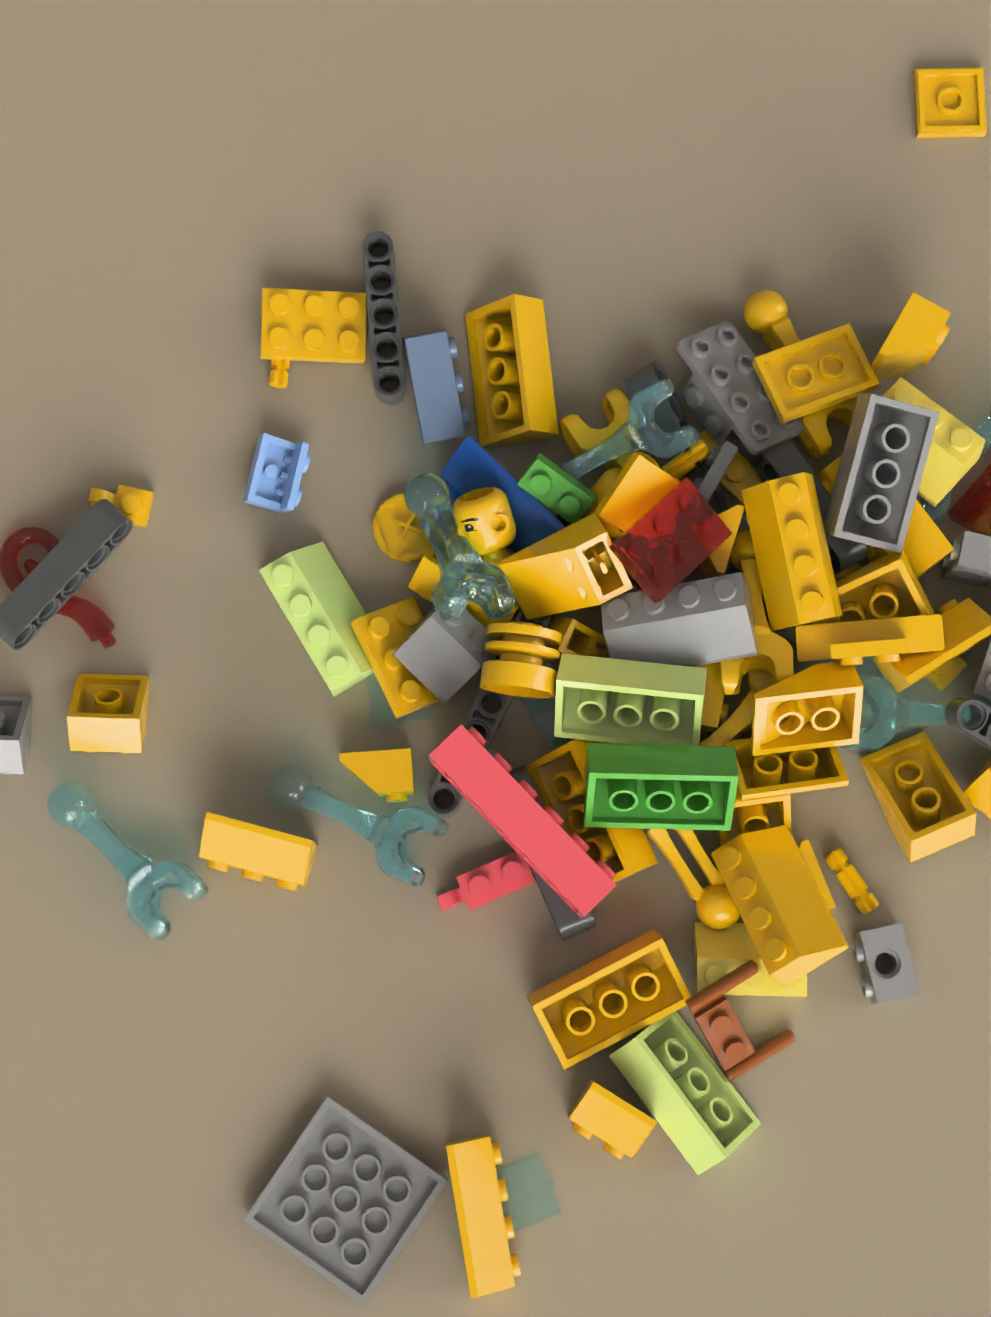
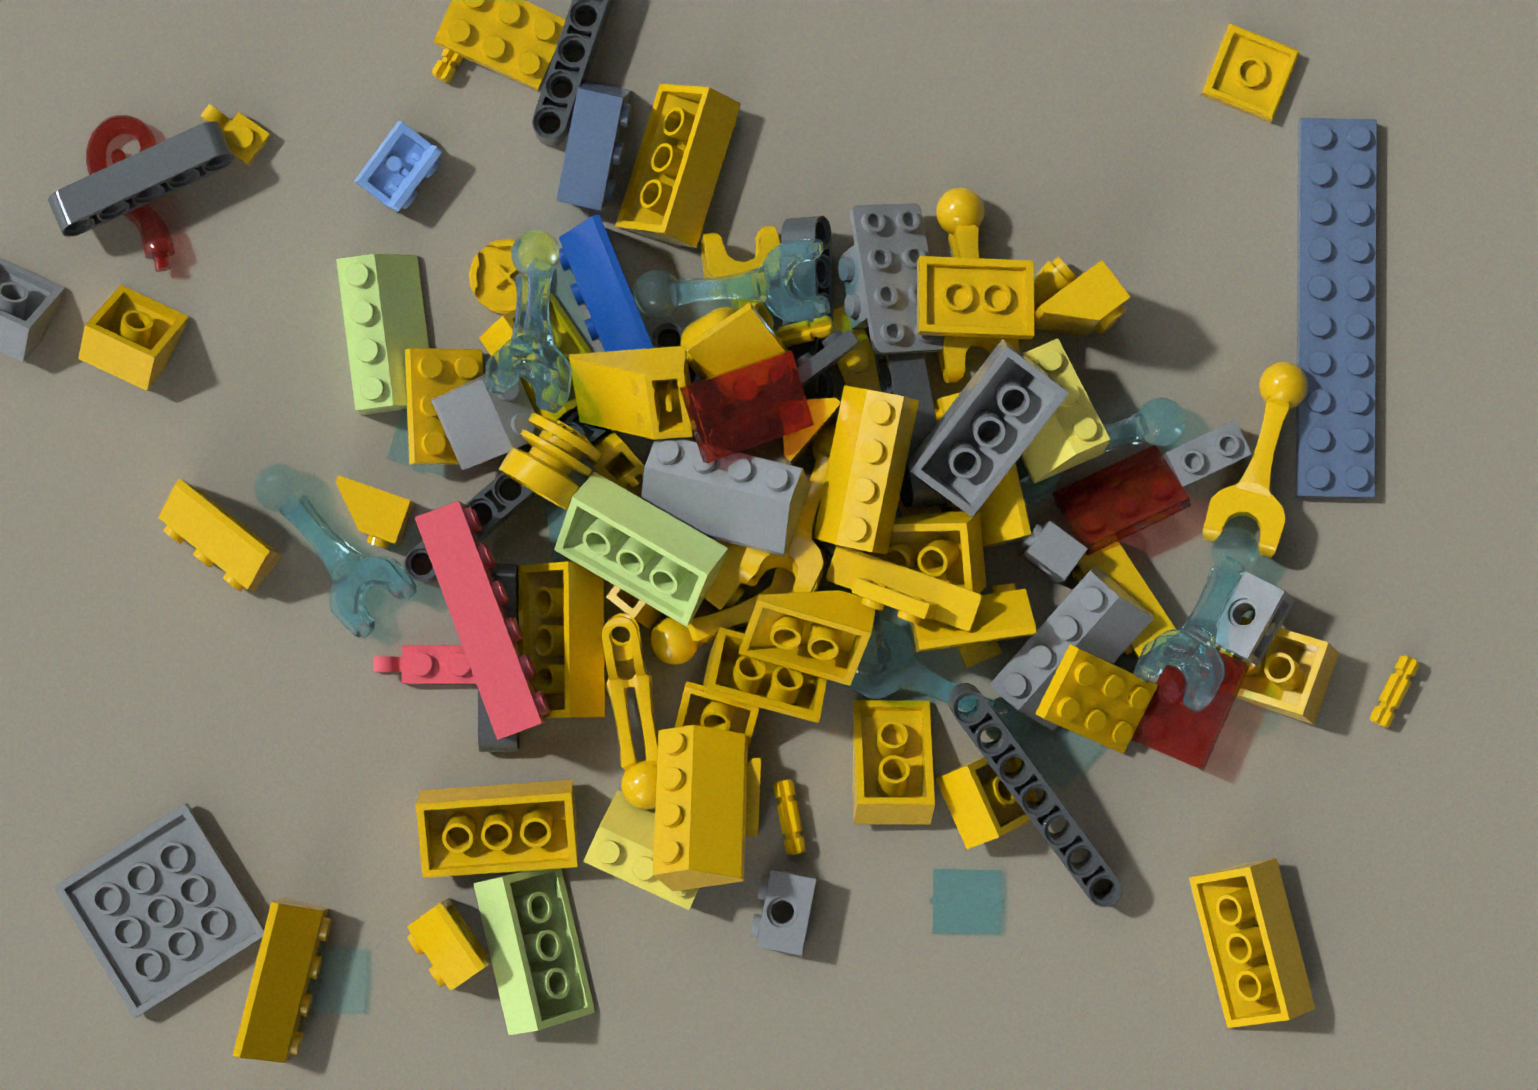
camera: 25 degrees right, 5 degrees up
(73, 807) = (98, 515): clear light blue piece -> none
(486, 522) = (577, 309): yellow piece -> none
(556, 489) = (661, 305): bright green plate -> none
(660, 786) = (628, 644): bright green slope -> none
(724, 1030) = (595, 908): dark orange plate -> none
(870, 334) = (1051, 280): none -> yellow cone

